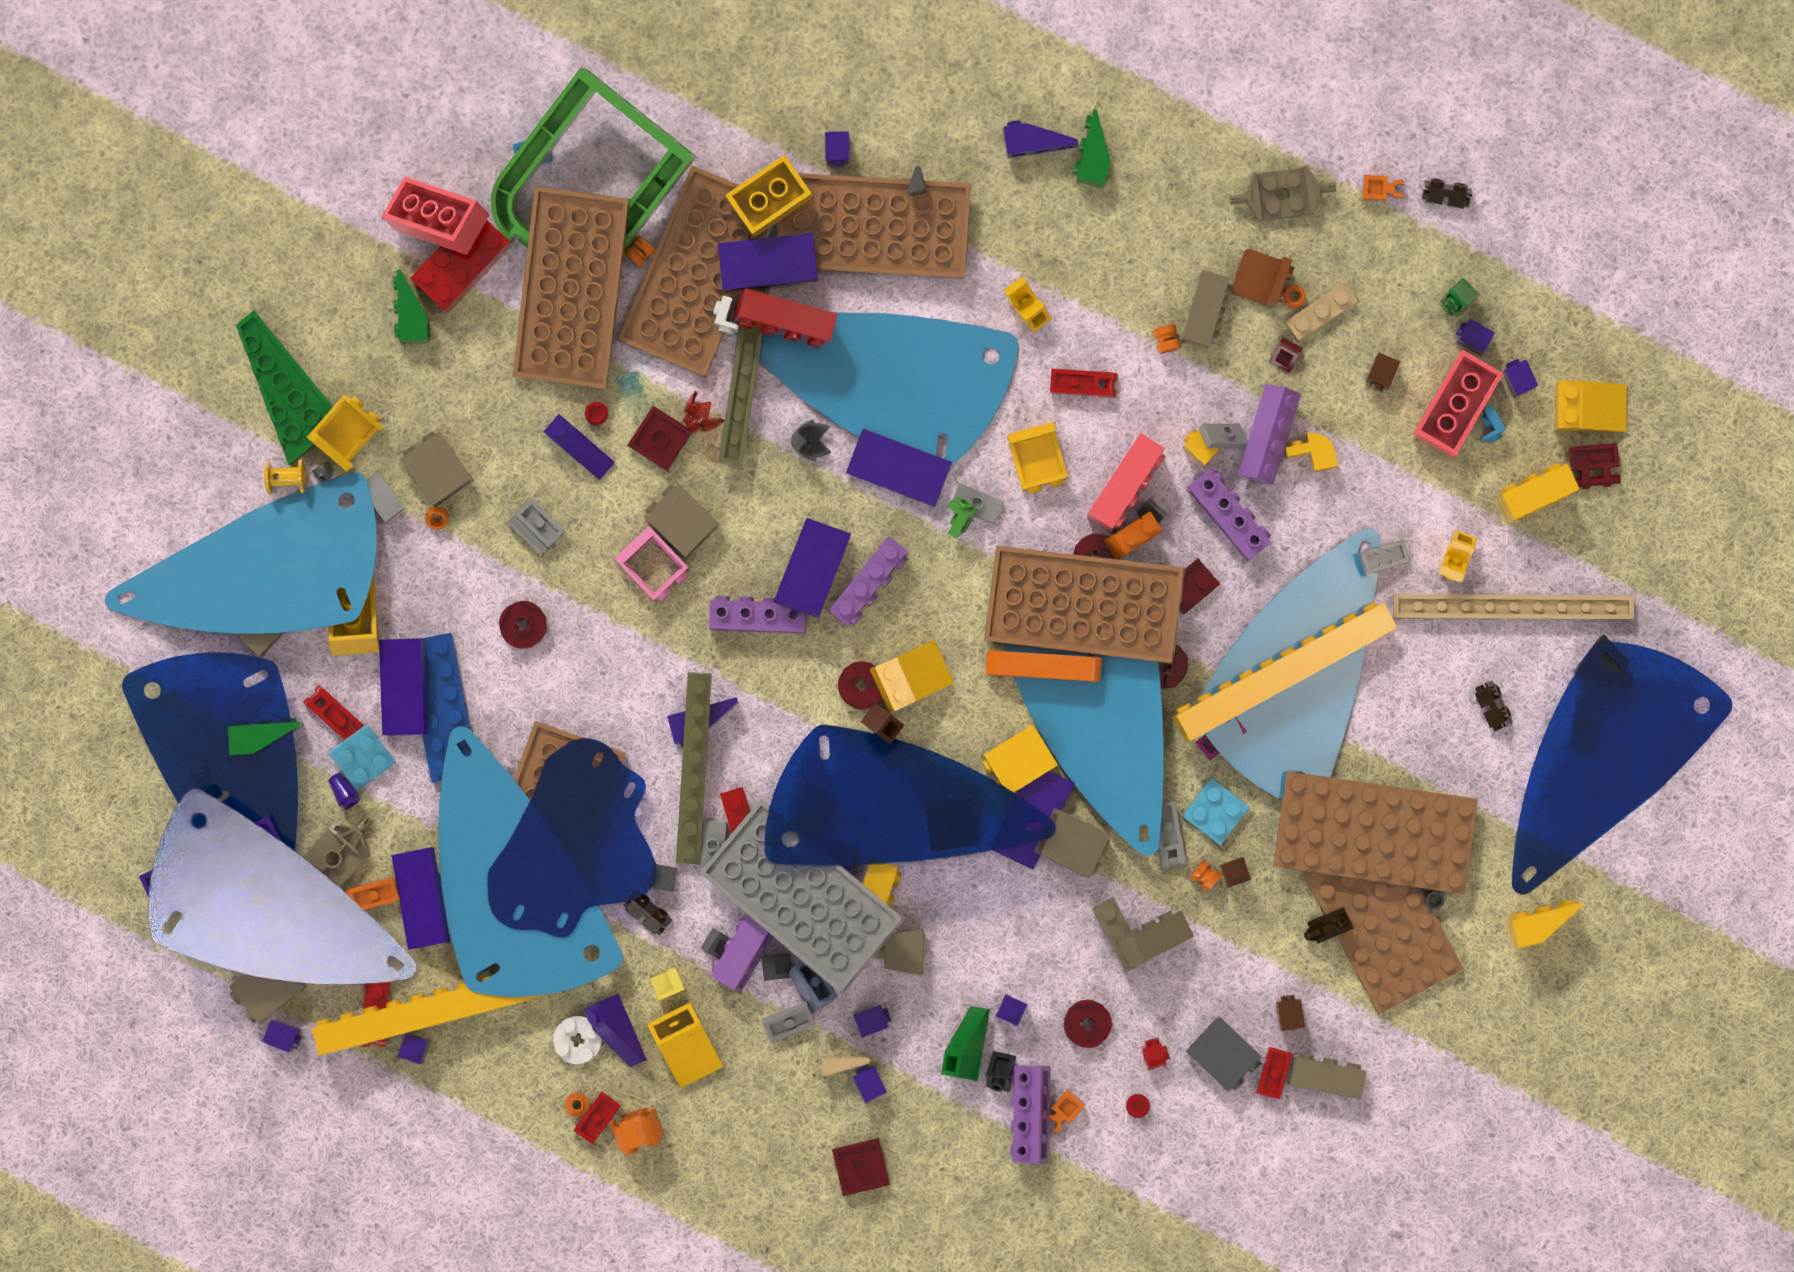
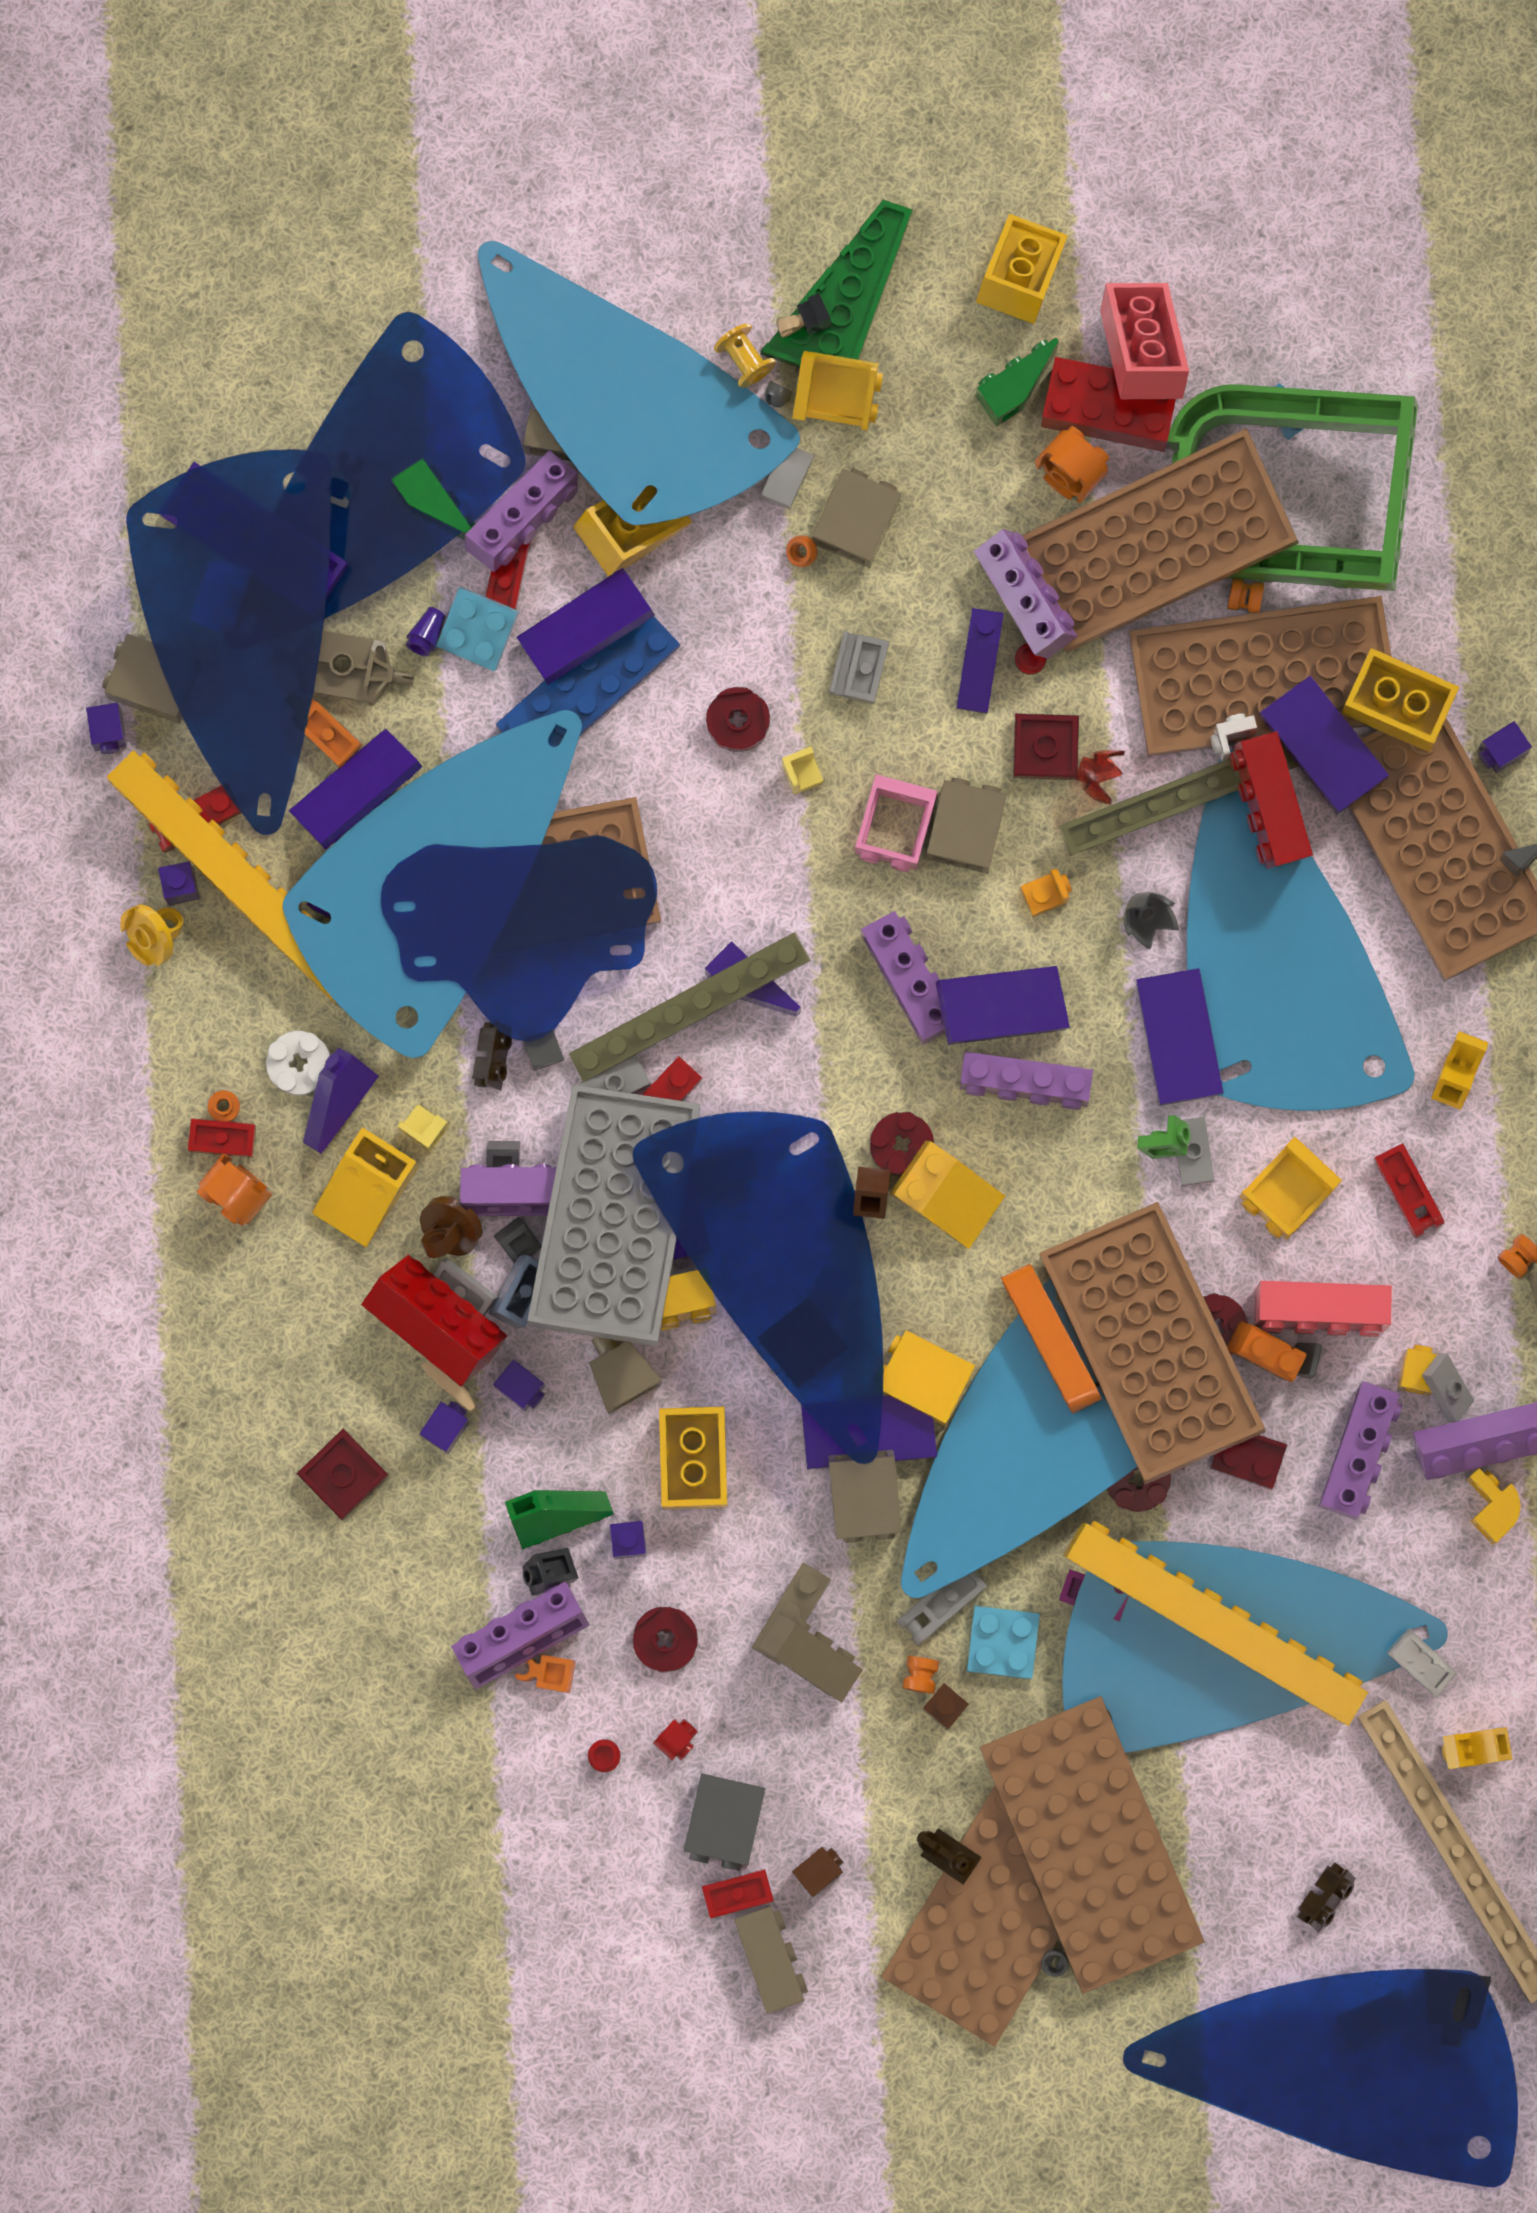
camera: 55 degrees right, 5 degrees down
(286, 418) = (811, 315): none -> black piece
(302, 682) = (522, 511): none -> medium lavender brick
(336, 263) = (1021, 268): none -> yellow slope
(437, 1087) = (149, 934): none -> yellow tile
(487, 309) = (1073, 464): none -> orange brick
(553, 391) = (1025, 593): none -> medium lavender brick
(582, 604) = (802, 770): none -> light yellow panel
(630, 384) = (1087, 675): clear light blue wheel -> none
(744, 1007) = (449, 1228): none -> reddish brown tile
(755, 495) = (1046, 892): none -> light orange bracket
(798, 1050) = (434, 1320): none -> red brick
(984, 938) = (693, 1458): none -> yellow brick
(1535, 928) = (1094, 2102): yellow slope -> none

